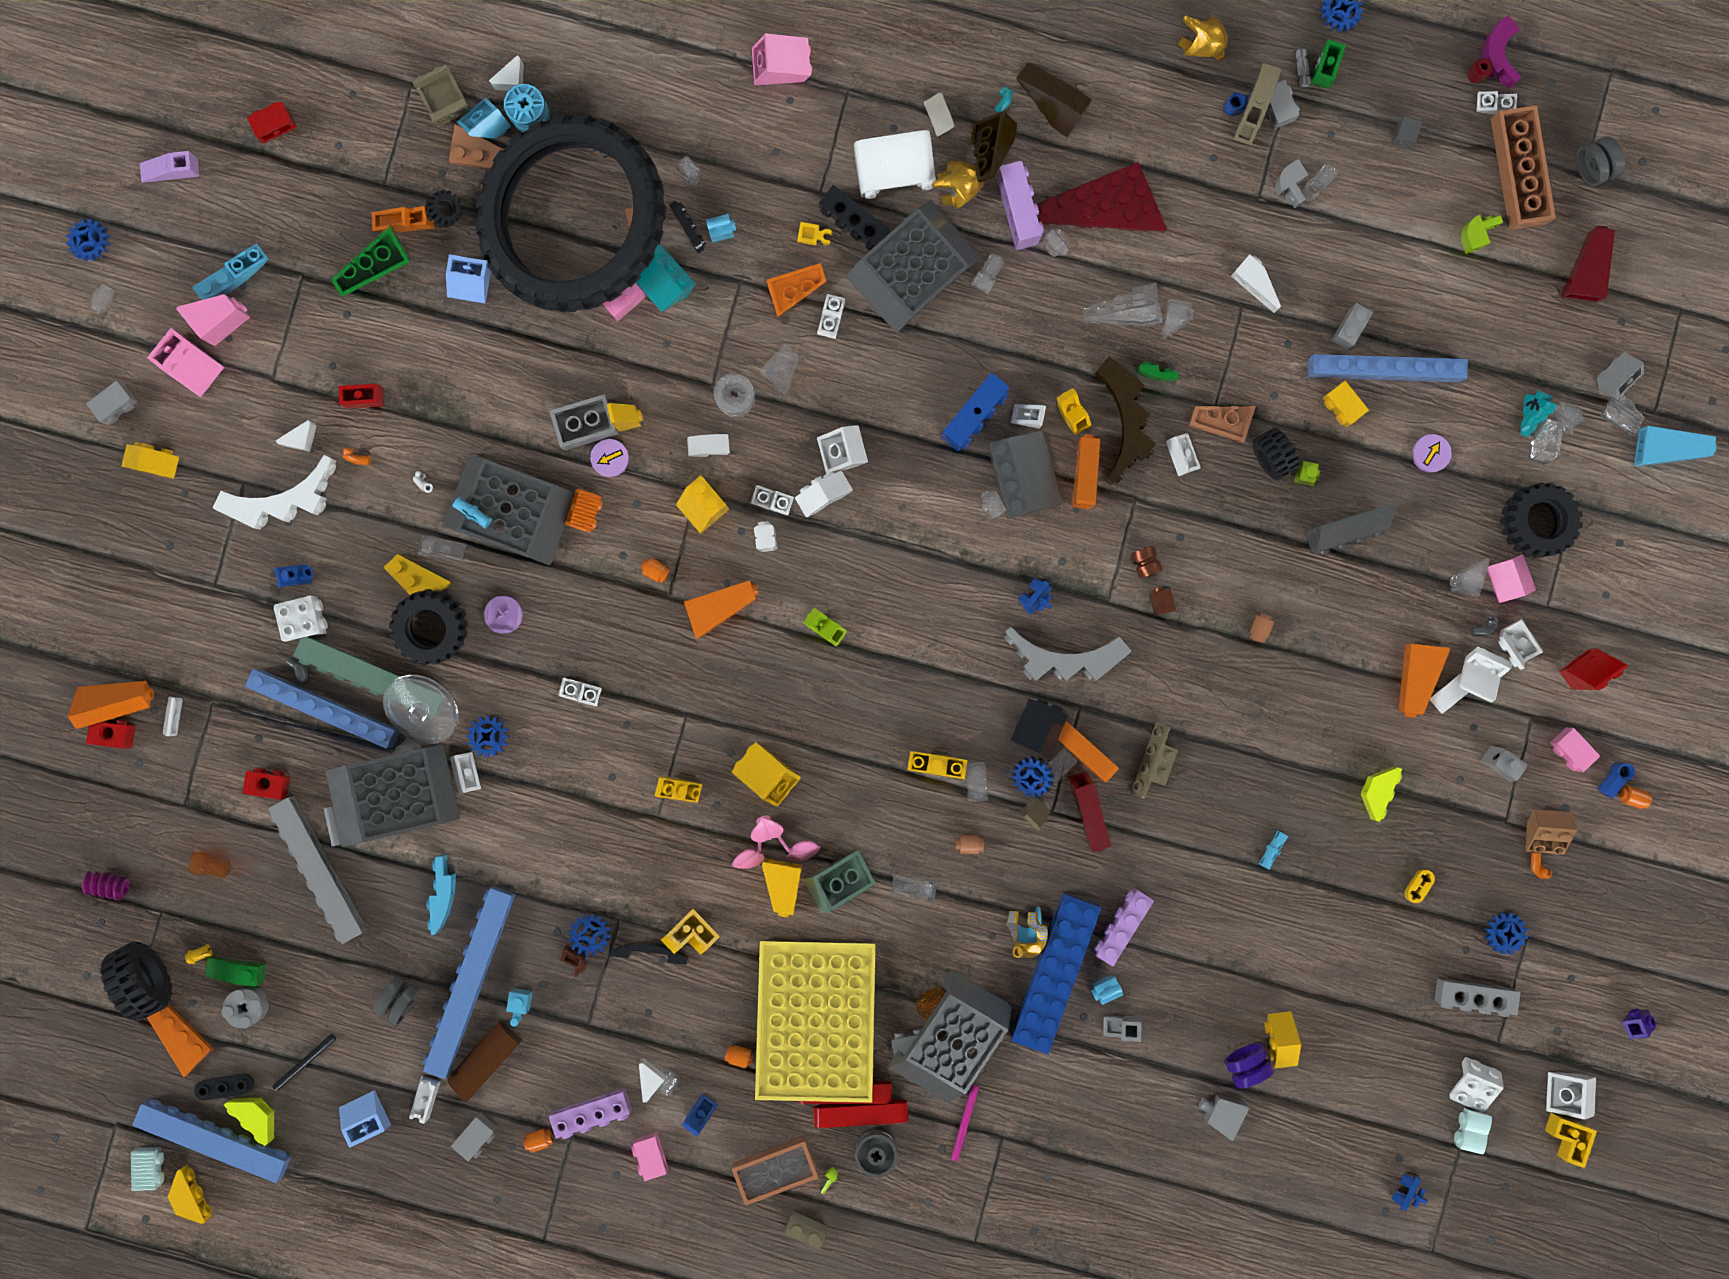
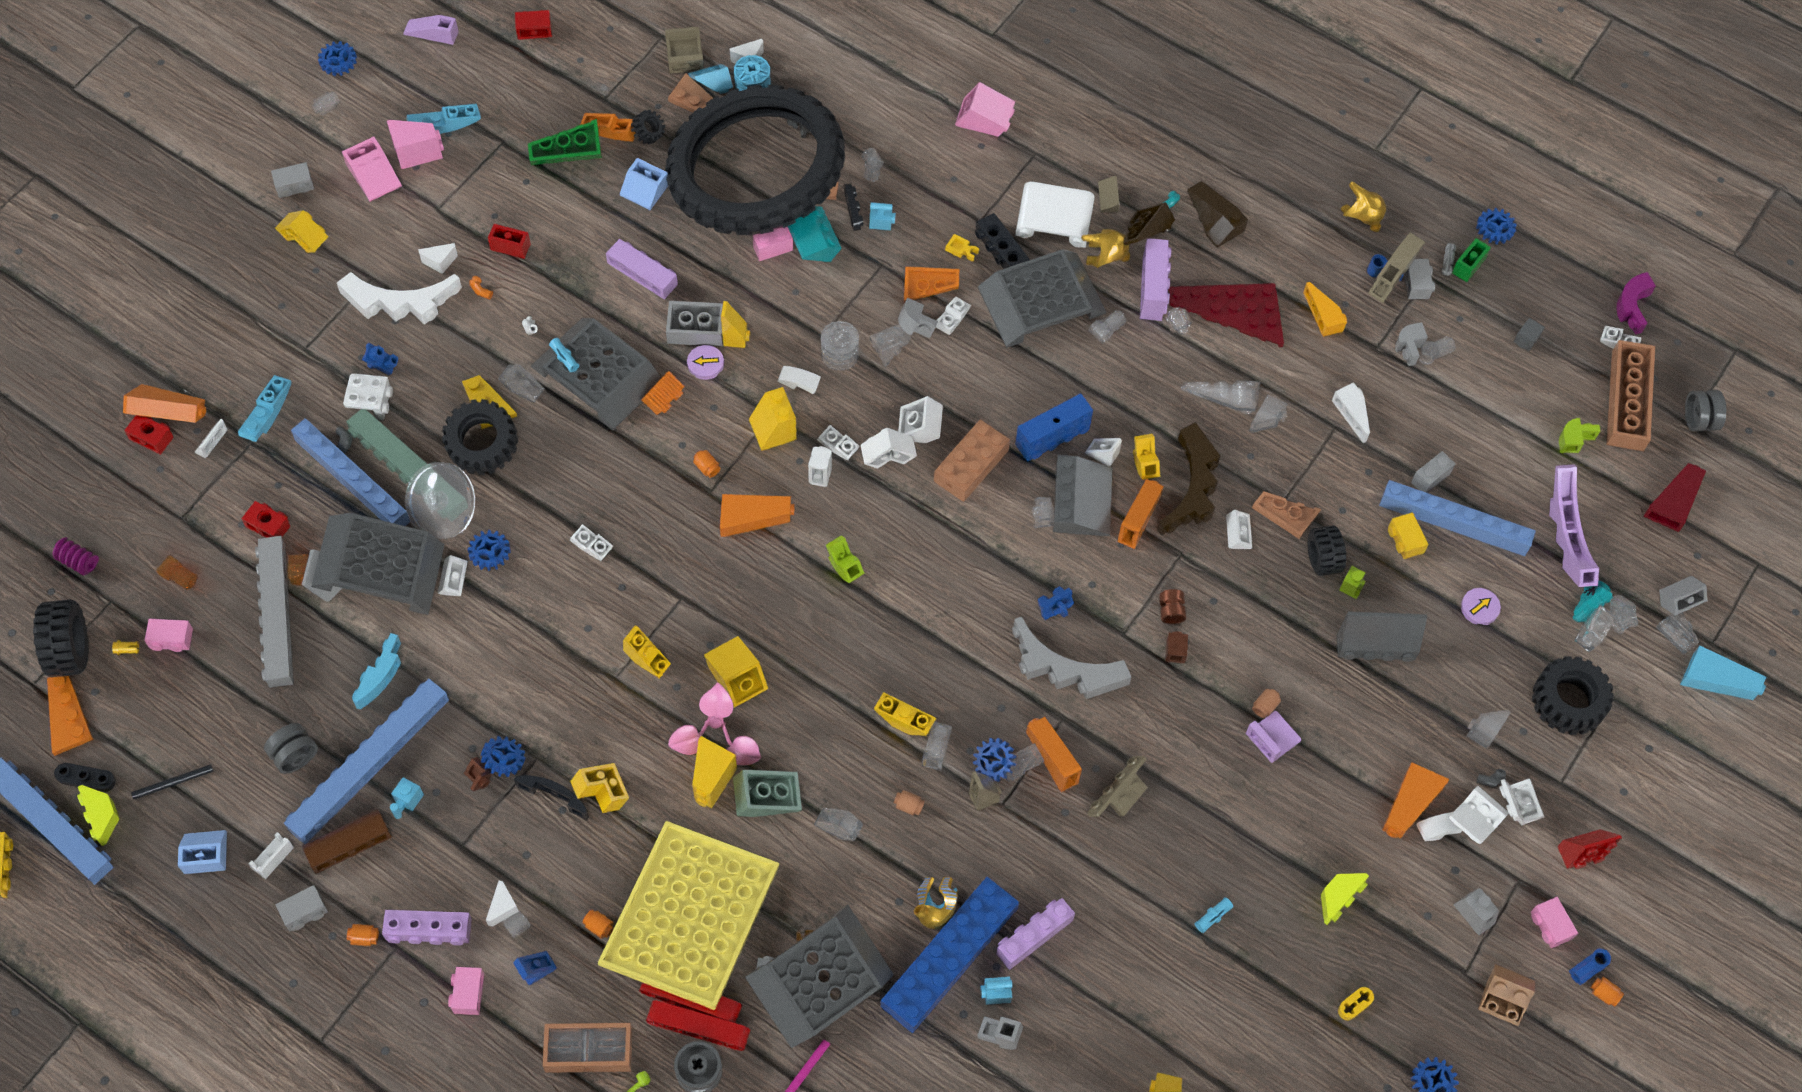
camera: 20 degrees right, 25 degrees down
(210, 667) = (268, 407): none -> medium azure slope
(231, 928) = (168, 634): none -> bright pink brick
(235, 1011) = (145, 707): light grey brick -> none
(236, 971) = (153, 674): green slope -> none
(317, 821) = (296, 568): none -> clear orange brick
(503, 614) = (551, 456): lavender tile -> none
(506, 378) = (642, 268): none -> lavender brick
(794, 340) = (913, 321): none -> light grey brick
(906, 474) = (971, 460): none -> nougat brick
(1039, 726) = (1017, 714): black brick -> none
(1089, 811) = (1039, 812): dark red slope -> none
(1152, 372) = (1229, 449): green slope -> none
(1198, 178) = (1325, 311): none -> light orange slope
(1277, 658) = (1273, 736): none -> lavender bracket
(1479, 70) = (1610, 308): dark red brick -> none
(1499, 349) = (1569, 535): none -> lavender arch
(1511, 578) = (1530, 742): bright pink slope -> none
(1537, 868) = (1485, 1027): orange arm -> none

